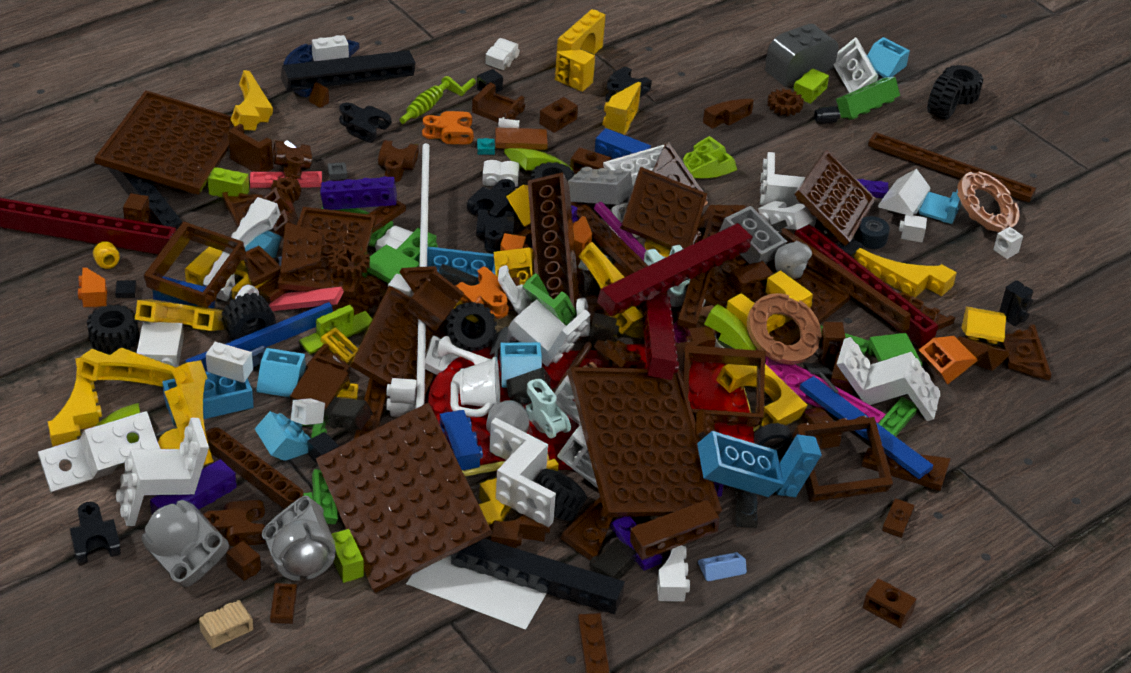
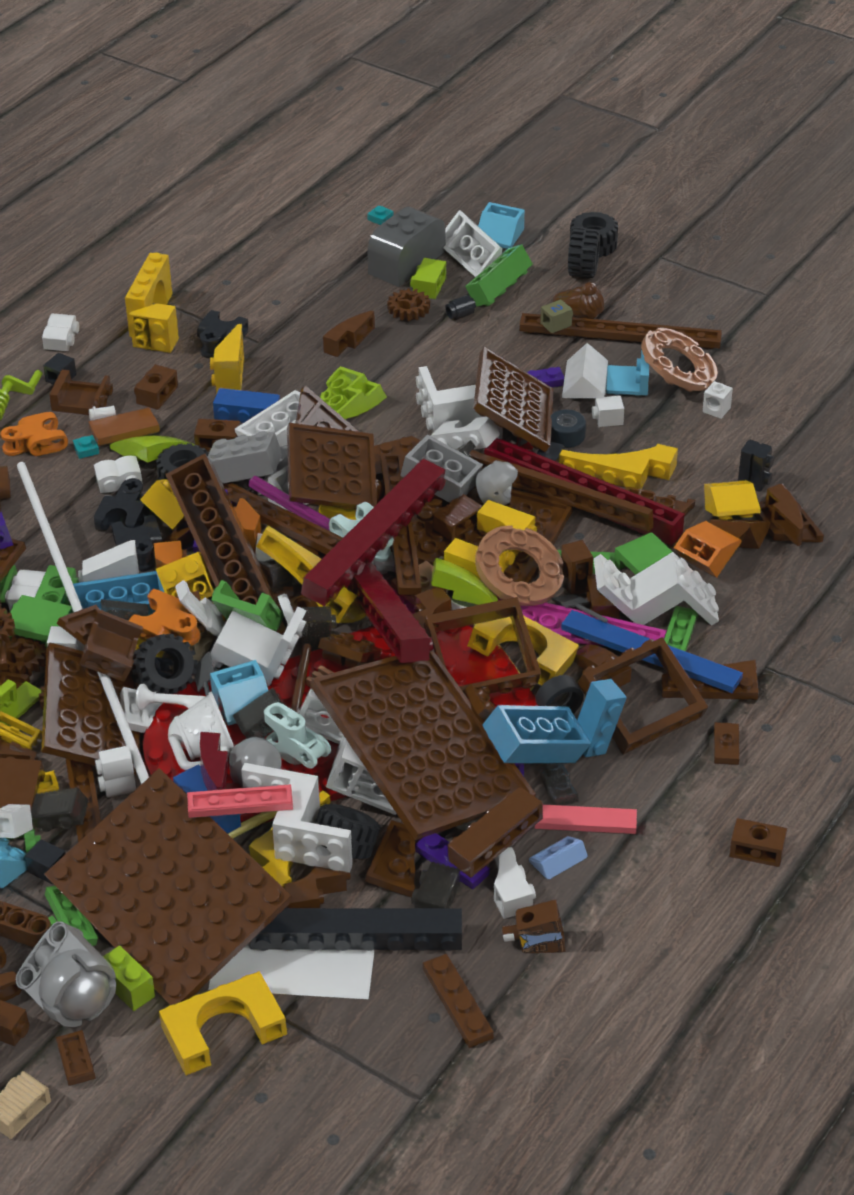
camera: 15 degrees left, 0 degrees up
(427, 596) = (244, 996): none -> yellow arch
(466, 239) = (111, 563): none -> white slope
(473, 413) = (213, 761): none -> dark red slope
(479, 445) = (239, 801): none -> coral tile
(679, 616) = (537, 929): none -> reddish brown torso
(757, 543) = (588, 819): none -> coral tile
(791, 24) = (379, 215): none -> teal plate
(900, 141) = (556, 316): none -> olive brick
(927, 135) = (584, 300): none -> reddish brown hair
(1024, 347) = (785, 512): none -> reddish brown slope

